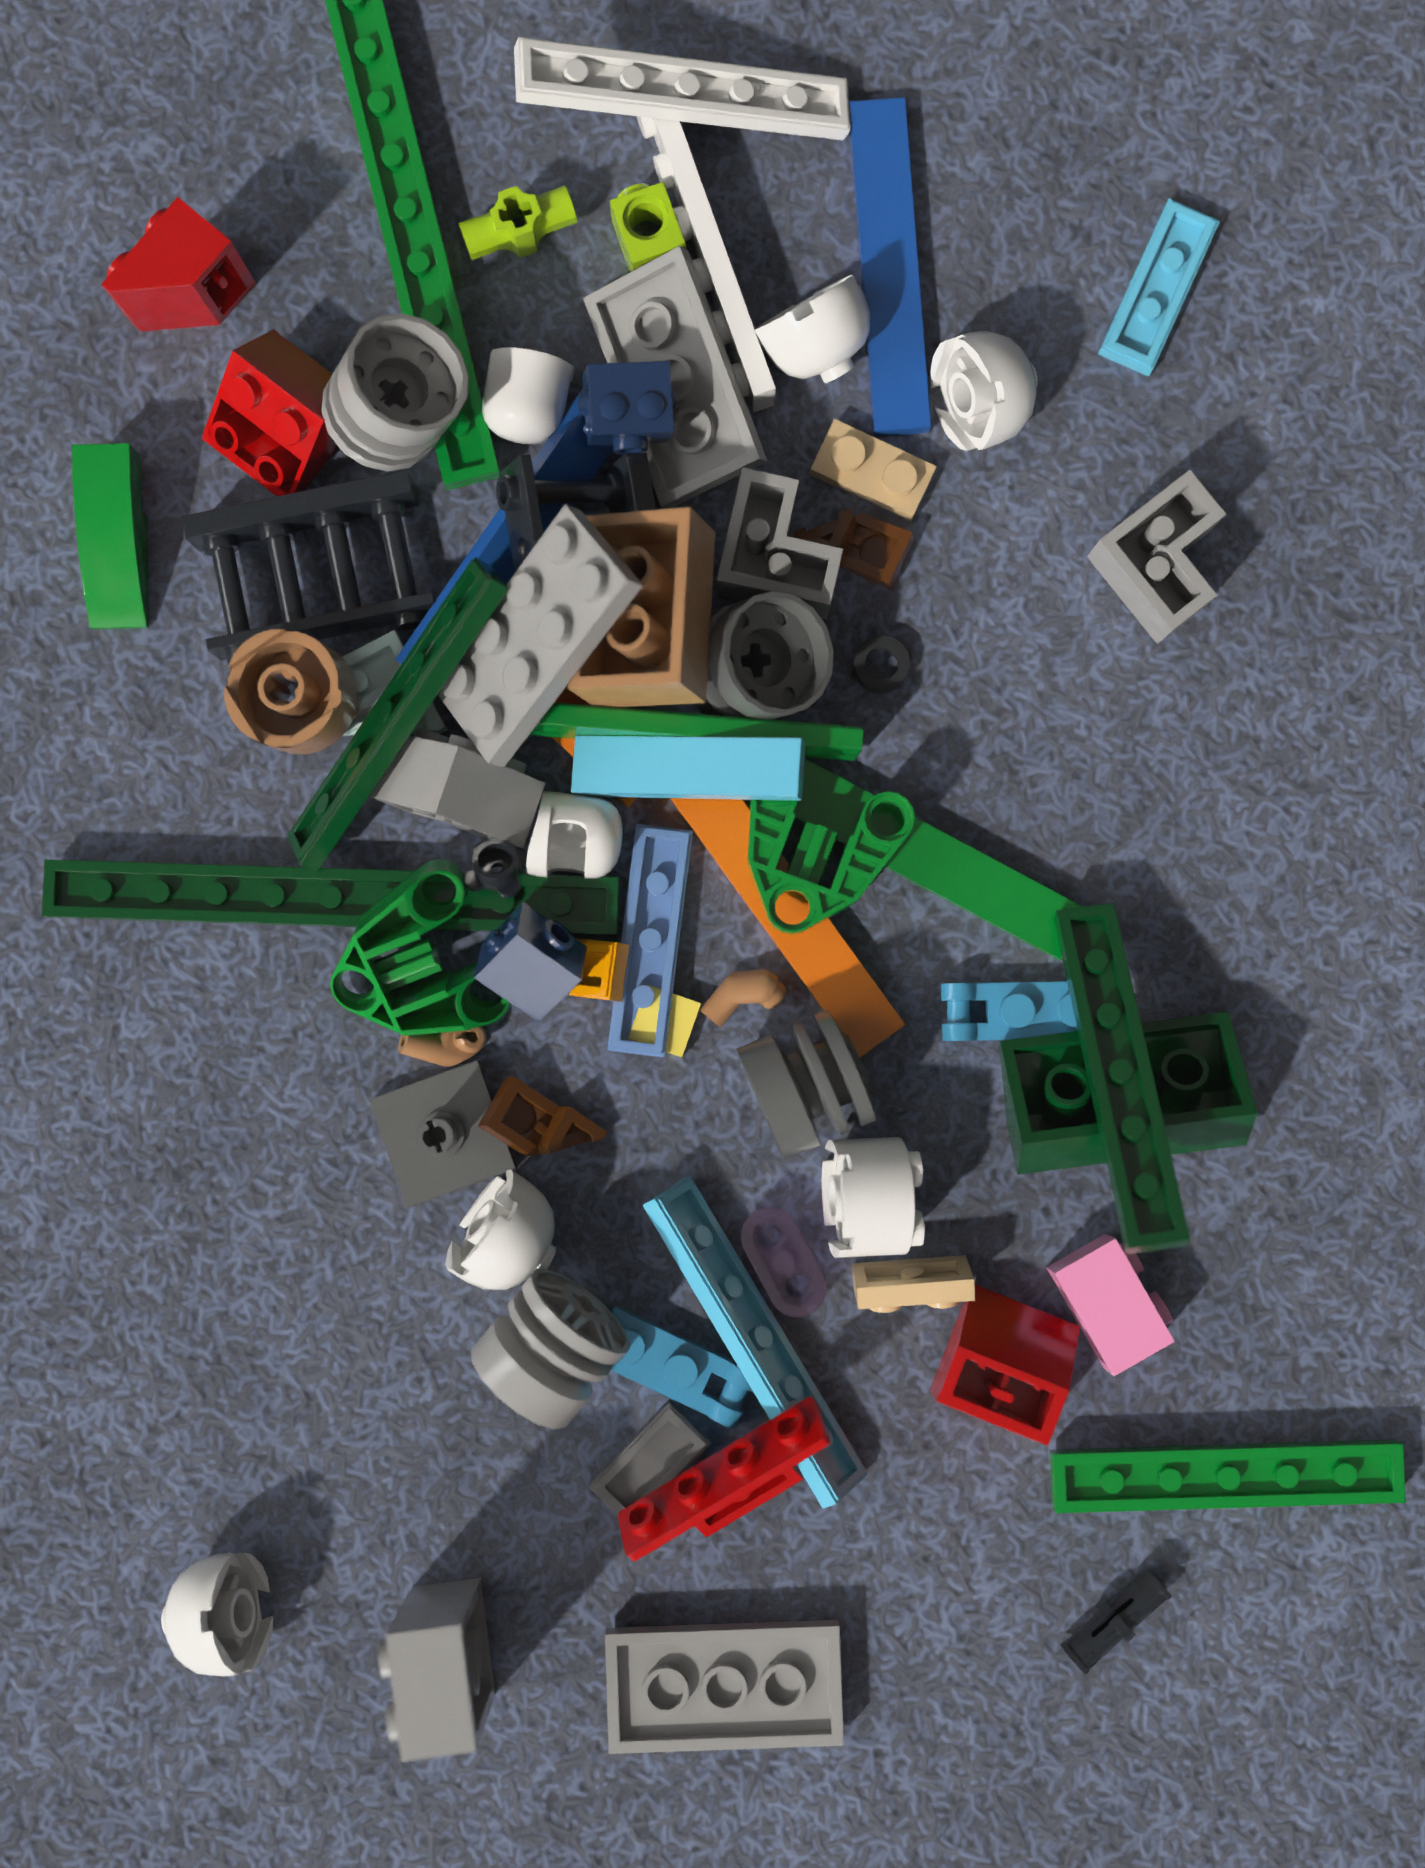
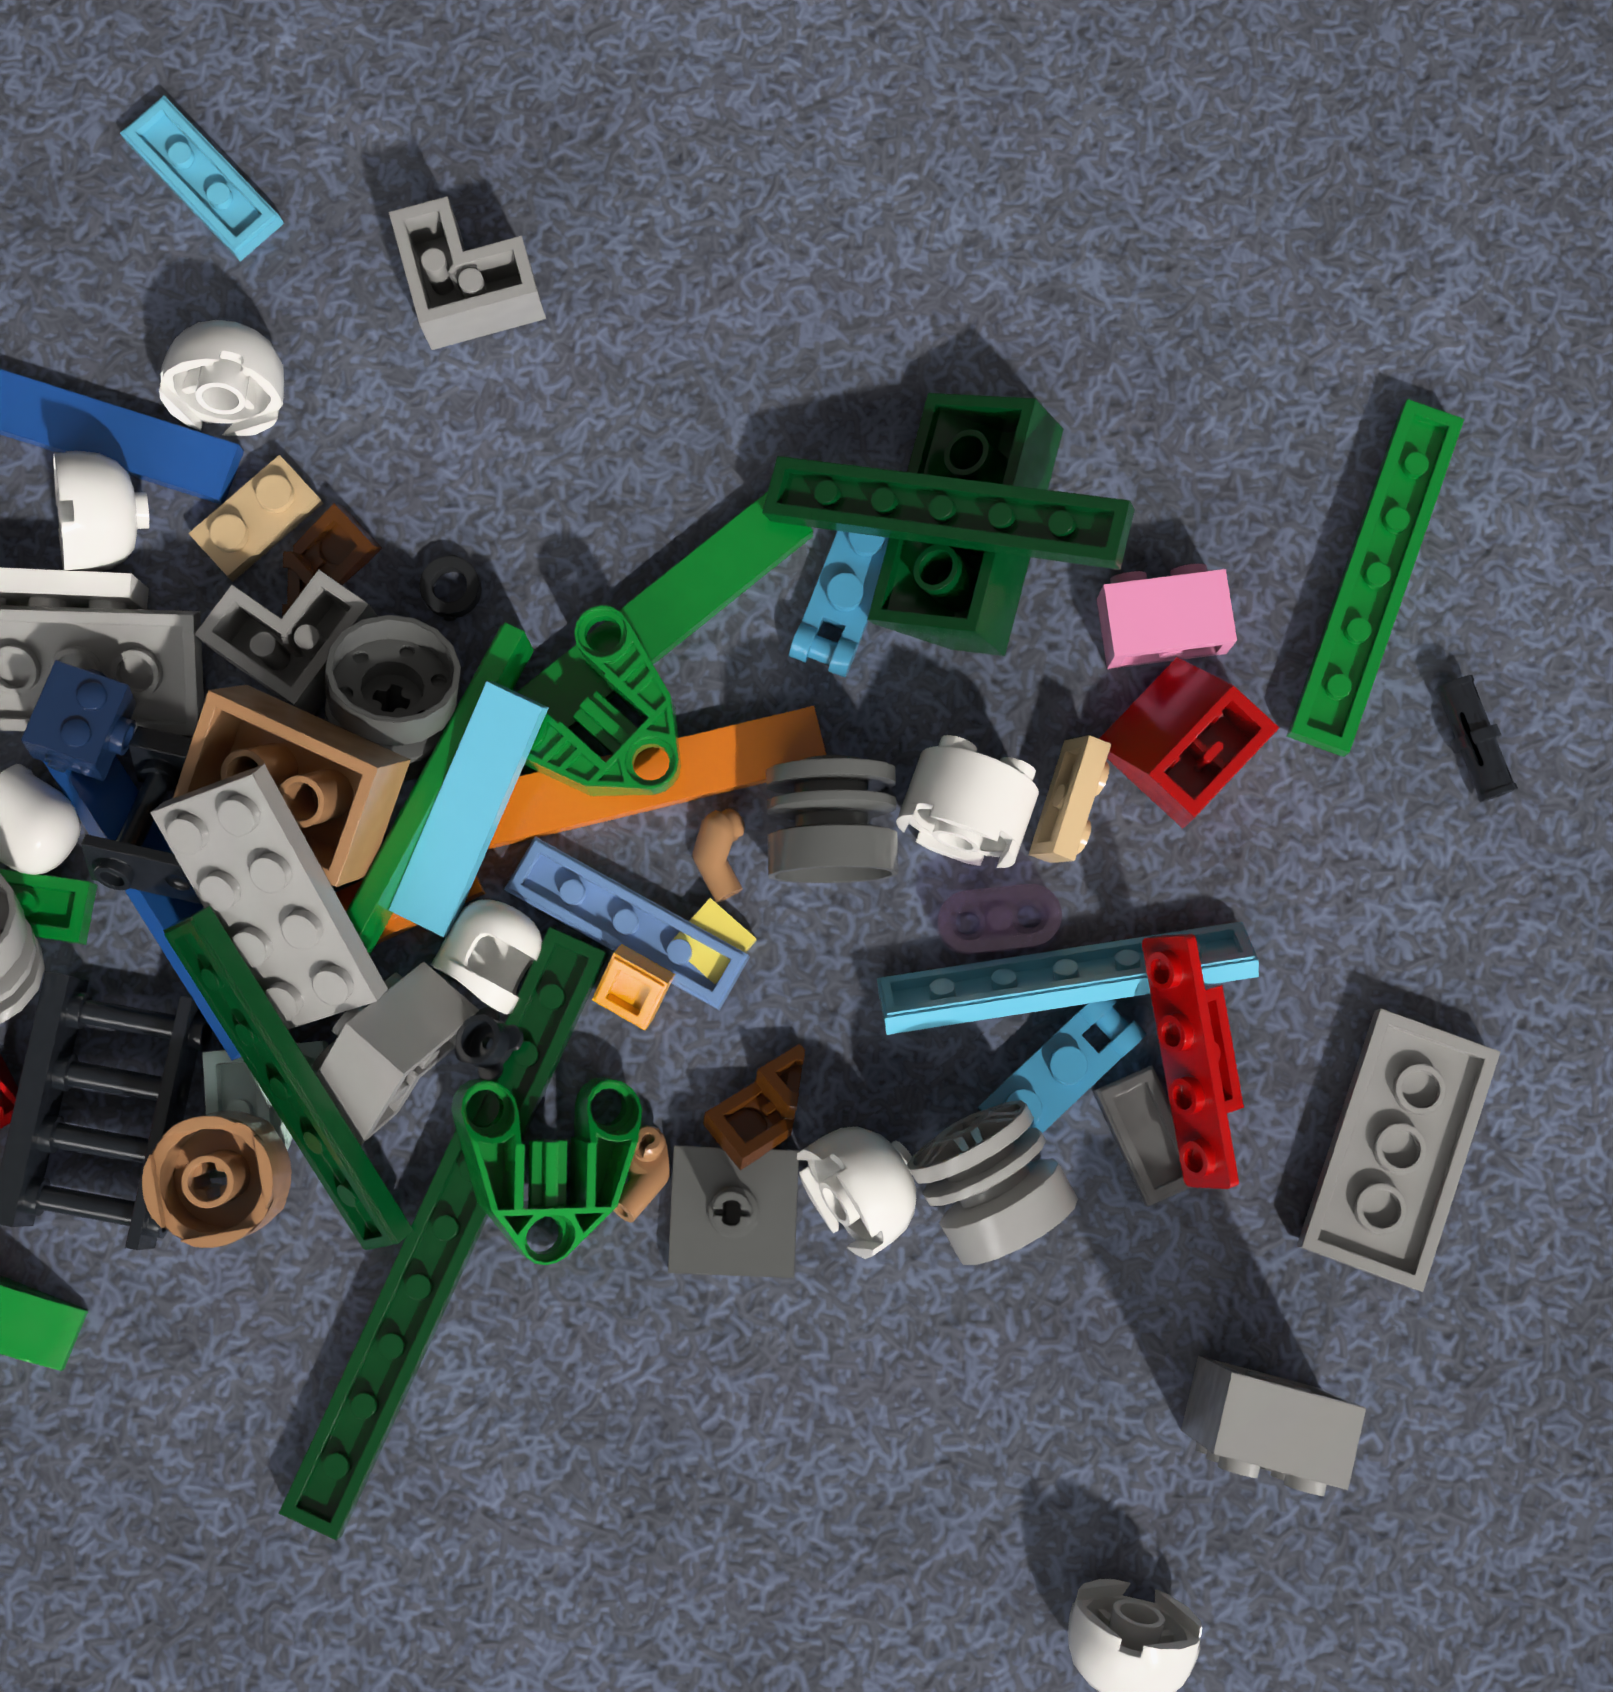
camera: 65 degrees left, 5 degrees down
(531, 962) = (596, 1046): head -> none

